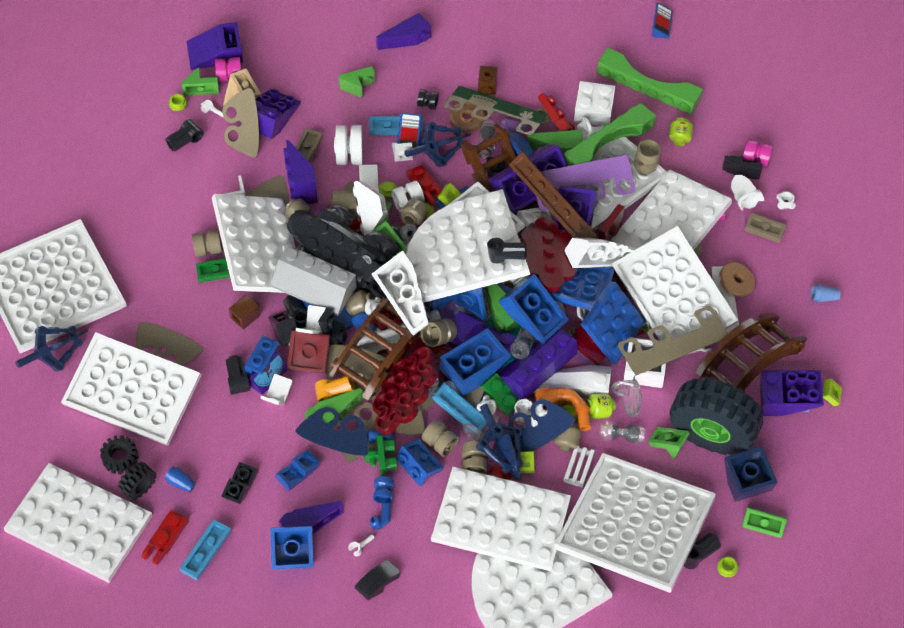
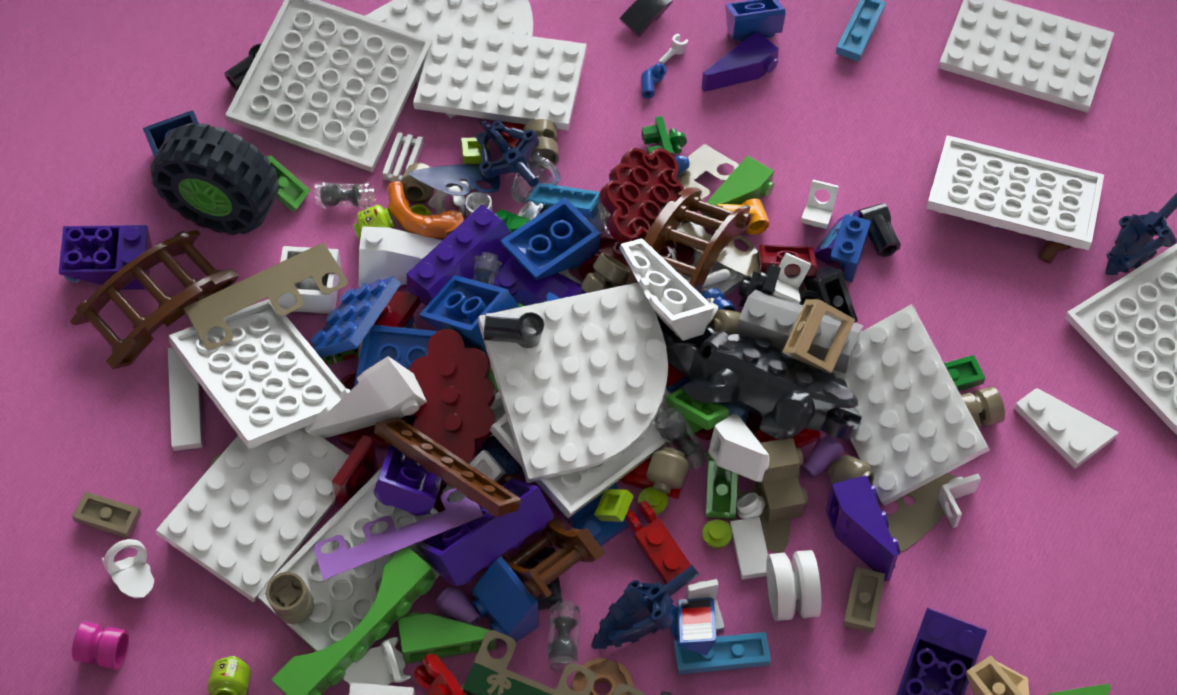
camera: 175 degrees right, 0 degrees up
(119, 444) = (1004, 110): black tyre -> none
(137, 480) = (968, 81): black tyre -> none
(153, 235) = (1064, 427): none -> white wing
(165, 536) = (914, 43): red hinge -> none
(175, 343) = (1008, 284): dark tan piece -> none
(177, 102) = (1106, 669): lime plate -> none
(179, 479) = (916, 99): blue cone -> none
(187, 133) = (1070, 603): black piece -> none
(207, 105) = (1051, 668): white hand -> none
(240, 483) = (839, 104): black slope -> none
(244, 311) = (890, 302): reddish brown brick -> none
(249, 130) = (971, 610): piece -> none
(299, 470) = (769, 125): blue slope -> none
(311, 253) = (806, 328): none -> tan tile
(324, 434) = (742, 148): dark blue piece -> none
(383, 490) = (654, 102): blue wheel -> none
(412, 191) = (686, 512): white wheel -> none
(418, 461) = (609, 140): blue bracket -> none
(439, 437) = (586, 164): dark tan wheel -> none
(511, 125) = (528, 664): medium lavender cone -> none
(630, 395) = (329, 234): clear piece -> none
(727, 567) = (218, 57): lime plate -> none
(736, 166) = (140, 622): black slope -> none
(740, 272) = (154, 410): medium nougat tile -> none
(764, 522) = (154, 110): bright green slope -> none
(786, 196) = (62, 562): white plate -> none
(824, 293) = (32, 413): medium blue cone -> none
(832, 392) = (47, 269): lime plate -> none

